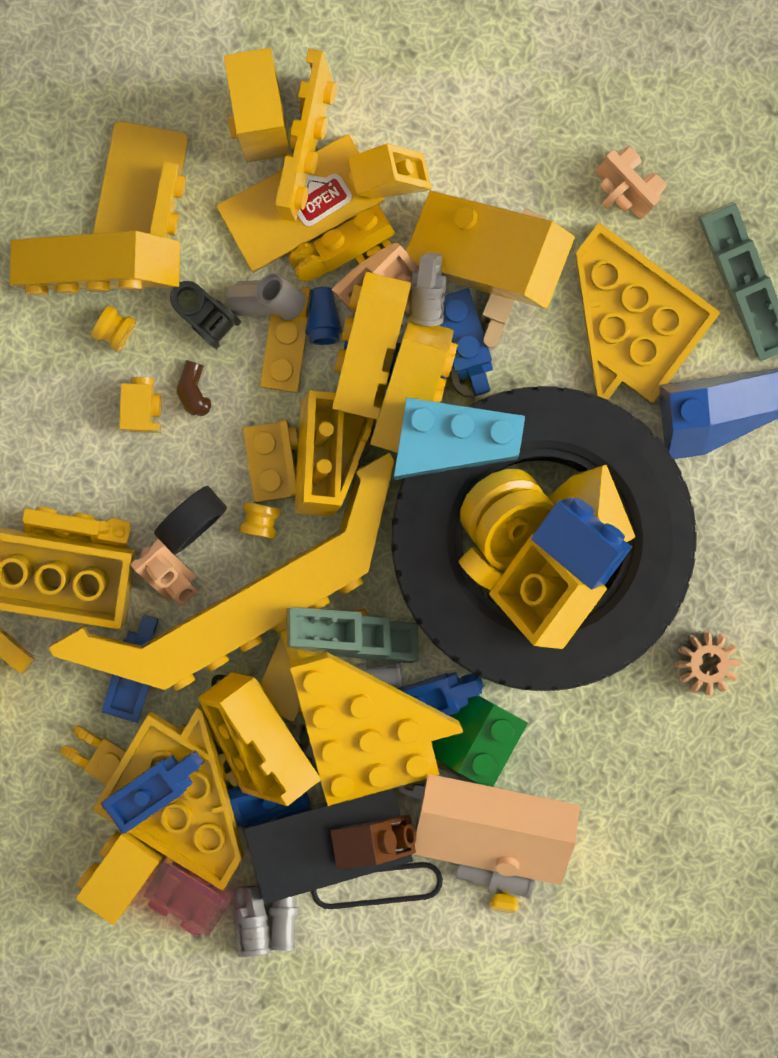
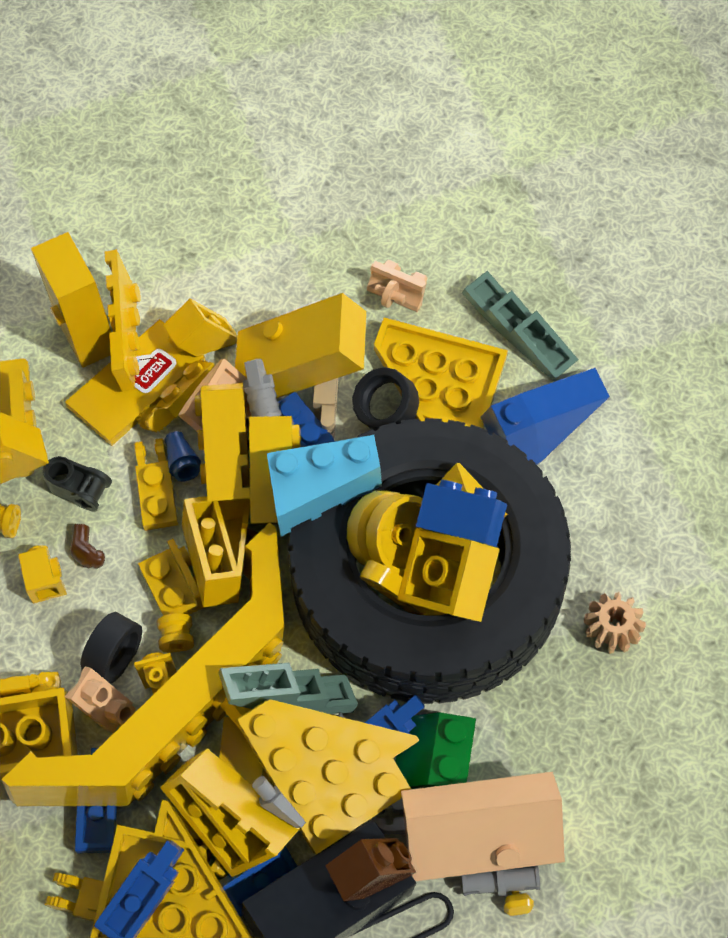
camera: 20 degrees left, 25 degrees down
(228, 571) = (155, 670): none -> yellow hinge
(266, 297) = (130, 444): light grey piece -> none
(304, 754) = (275, 802): none -> light grey bar
(589, 342) = (370, 383): none -> black tyre

